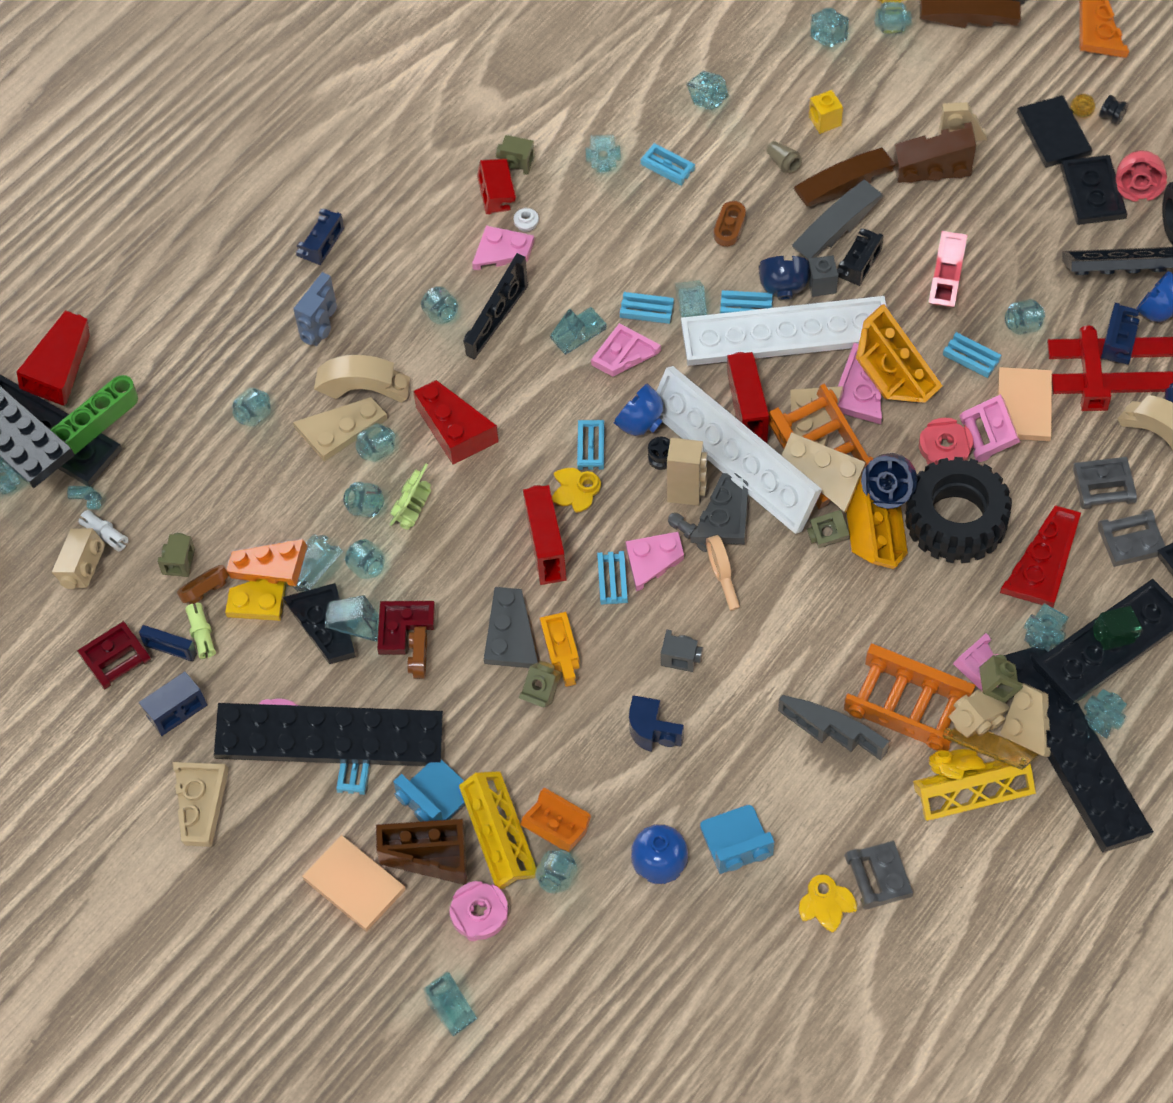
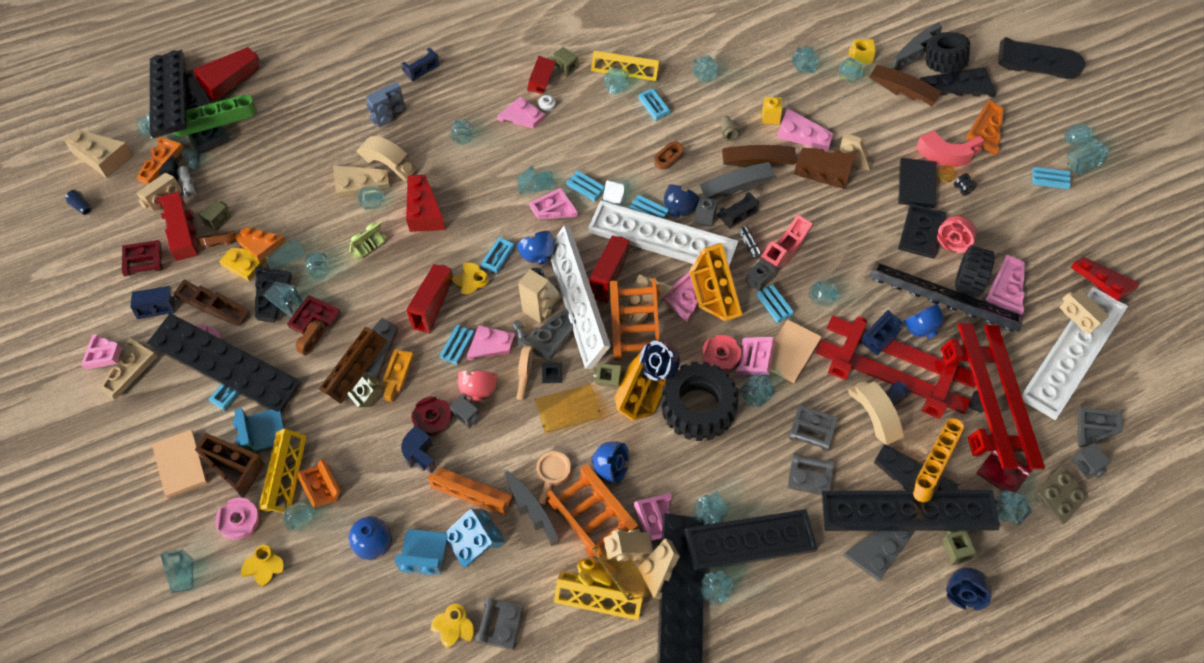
camera: 25 degrees right, 0 degrees up
(43, 517) = (160, 154): none -> orange wing
(68, 521) = (170, 167): none -> black slope
(141, 590) = (179, 226): none -> red wedge
(152, 797) = (101, 353): none -> bright pink wing
(167, 643) = (174, 264): dark blue tile -> none
(200, 630) = (198, 265): yellowish green pin -> none
(251, 407) = (314, 146): clear light blue head -> none
(255, 670) = (211, 303): none -> reddish brown slope
(363, 499) = (339, 228): clear light blue head -> none
(498, 306) = (494, 146): black wing -> none
(504, 658) = (353, 364): none -> reddish brown fence
(550, 952) = (262, 568): none -> yellow plate
(596, 118) = (626, 59): none -> yellow fence
(638, 663) = (435, 406): none -> dark red plate
(675, 612) = (477, 384): none -> coral cylinder
(747, 743) = (471, 491): none -> orange fence
(753, 558) = (551, 372): none -> black slope
(785, 792) = (473, 536): none -> dark azure bracket
(800, 592) = (568, 408): none -> clear yellow piece
(828, 468) = (624, 334): tan wing -> none
(829, 672) = (553, 470): none -> light nougat piece
(878, 122) = (803, 131): none -> bright pink wing
(893, 628) = (610, 461): none -> blue cylinder
(897, 291) = (750, 242): none -> dark grey axle
(935, 326) = (760, 275): none -> dark grey brick
(999, 673) = (654, 528): olive brick -> none
(1017, 467) = (757, 390): none -> clear light blue brick
(1043, 564) = (734, 467): red wing -> none
(1068, 80) = (945, 153): none -> coral arch
(1117, 628) = (755, 532): clear green brick -> none

